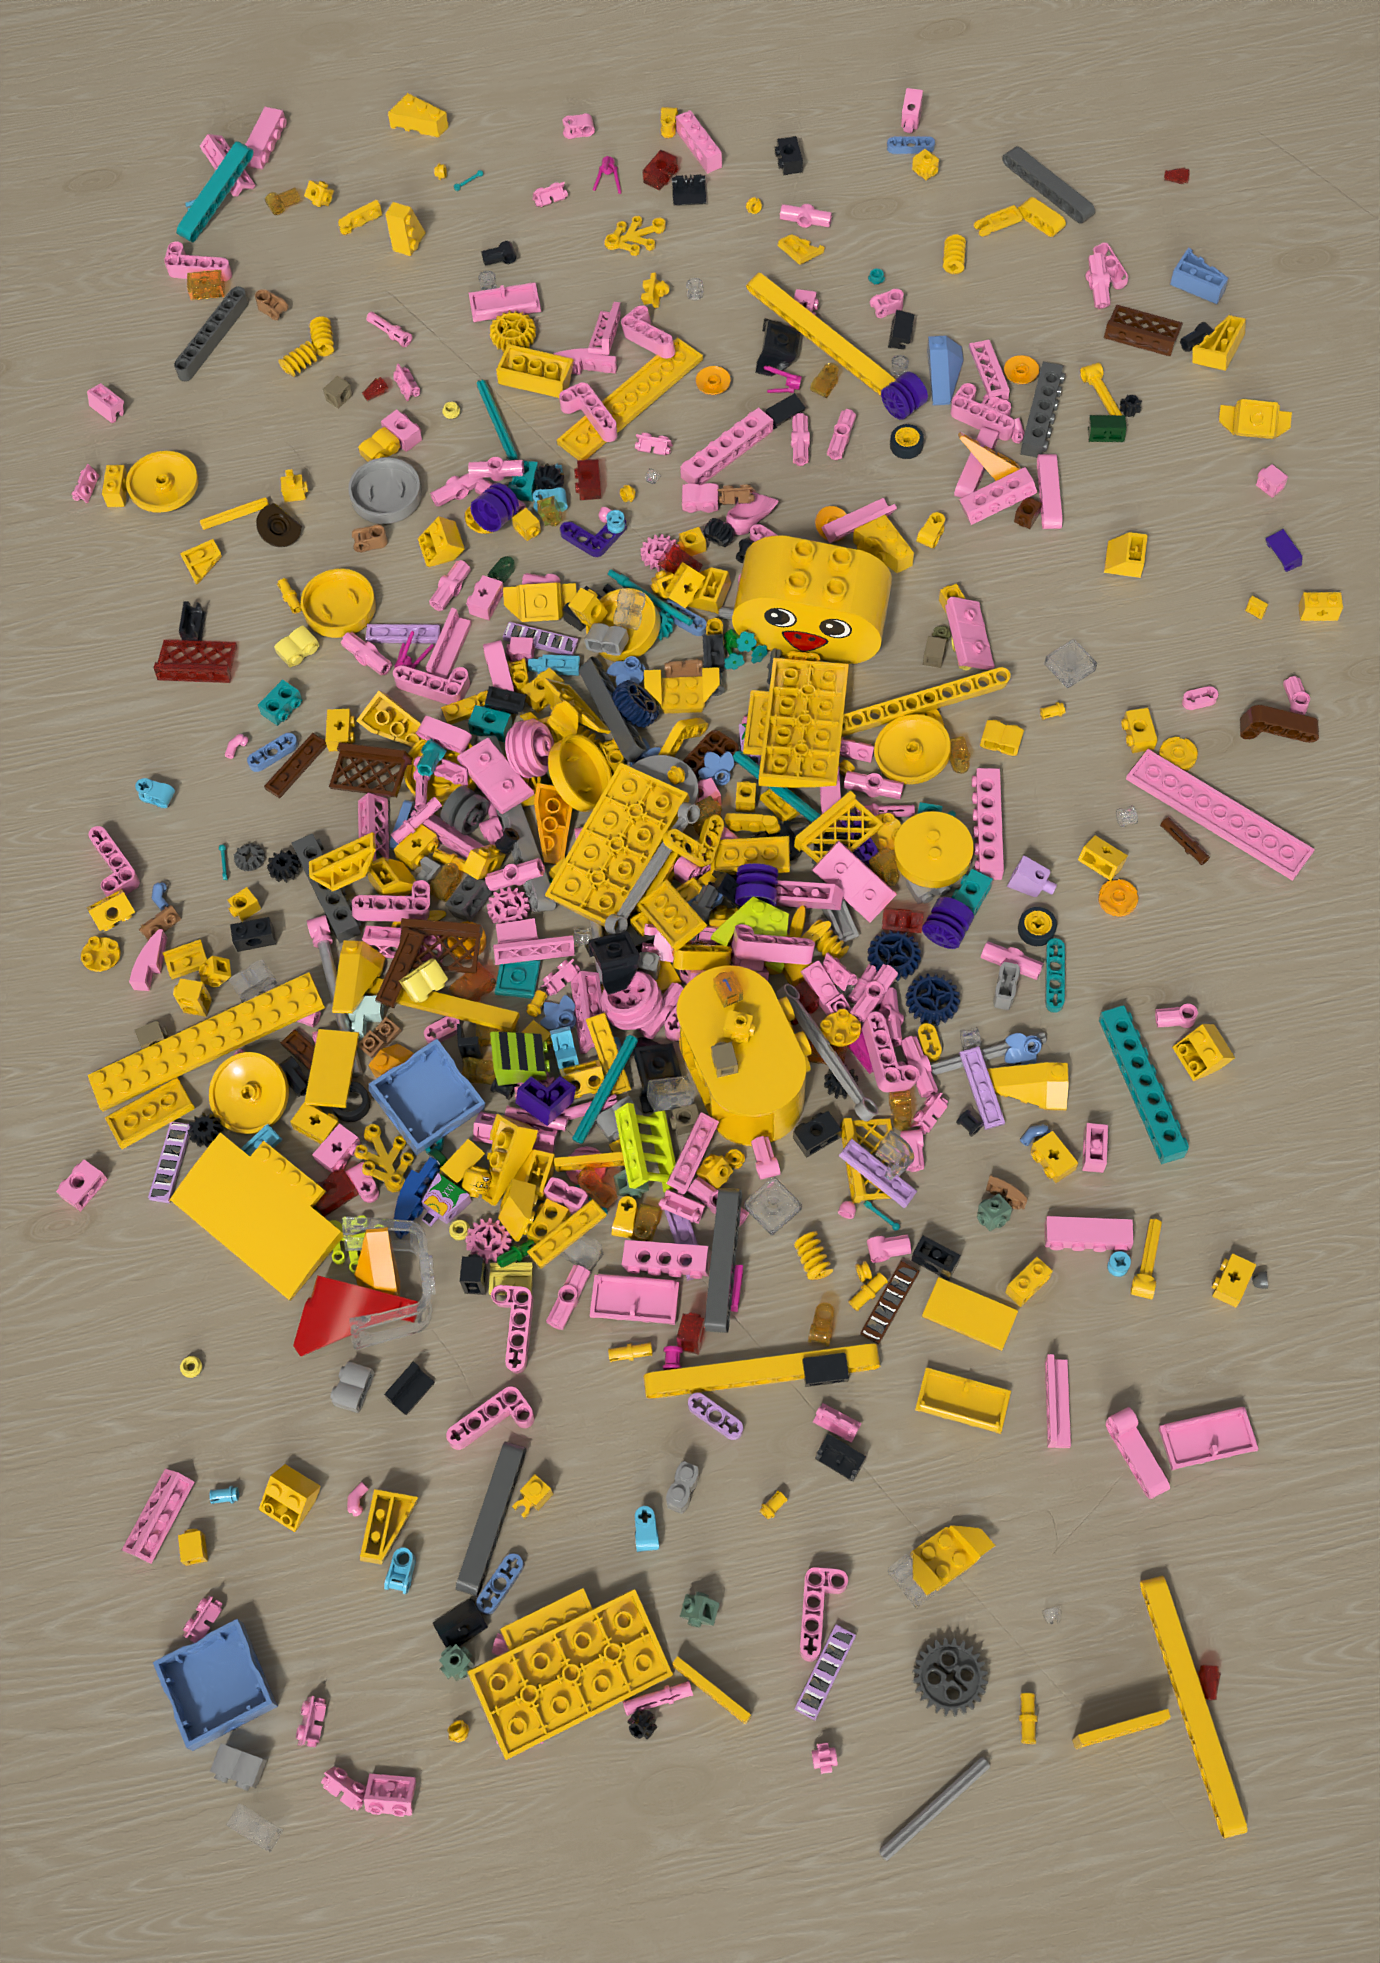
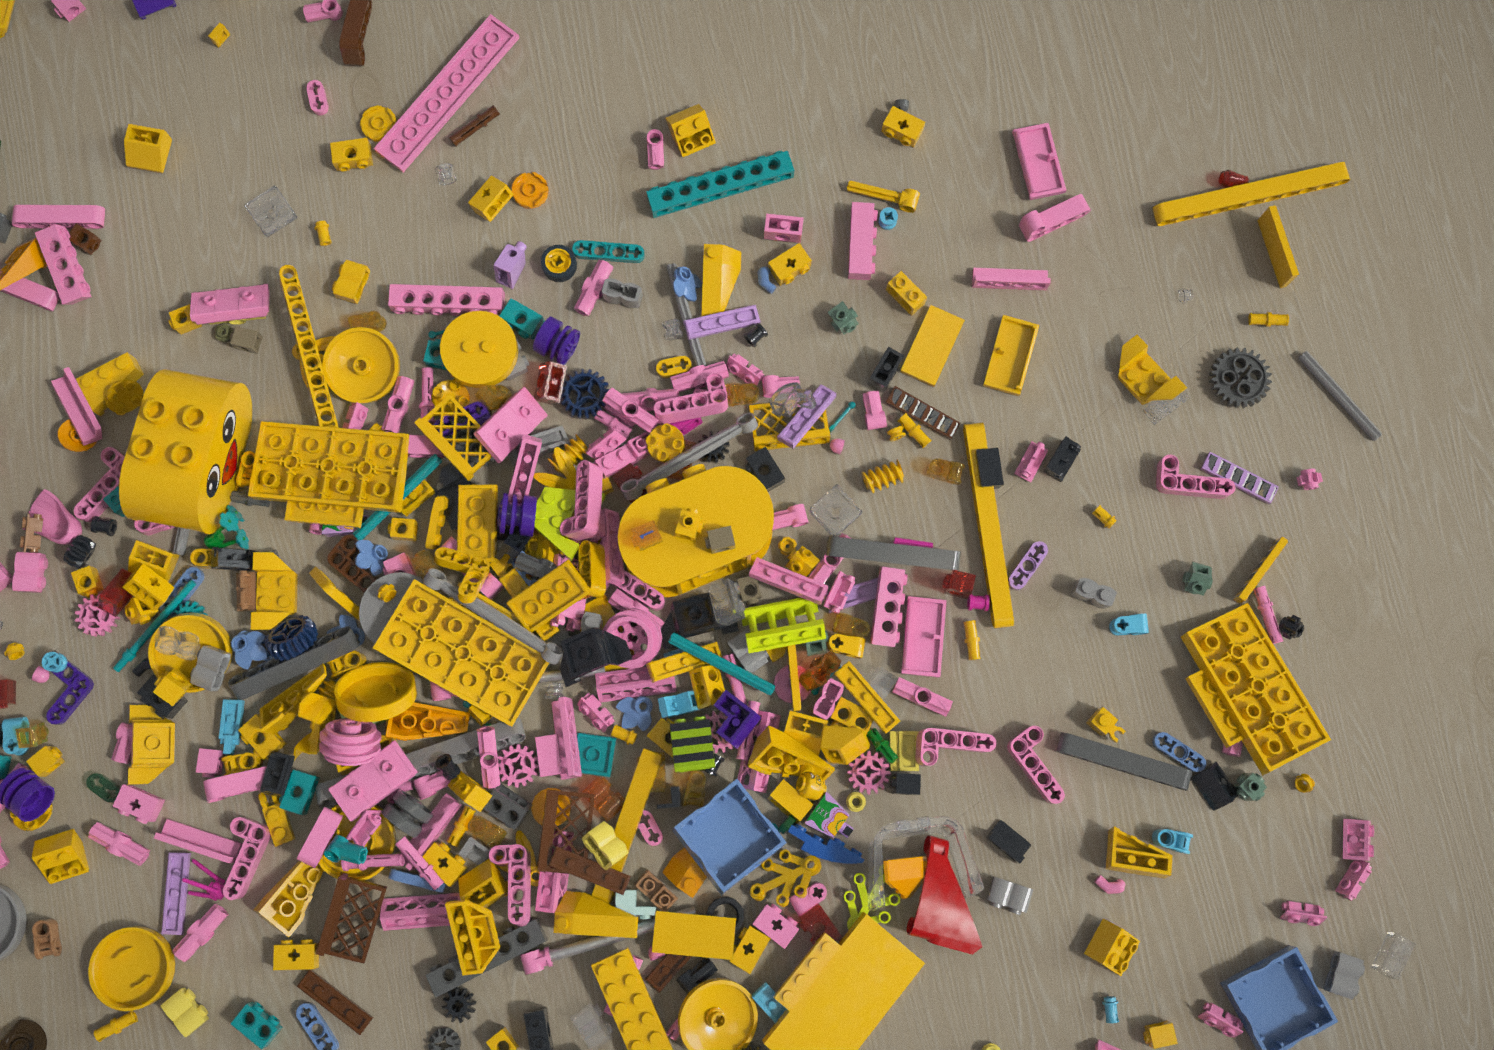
camera: 95 degrees left, 15 degrees up
(543, 639) = (196, 738): tile -> none
(918, 1004) = (624, 361): dark blue gear -> none
(932, 530) = (98, 335): yellow piece -> none
(1013, 1195) = (825, 303): medium nougat slope -> none

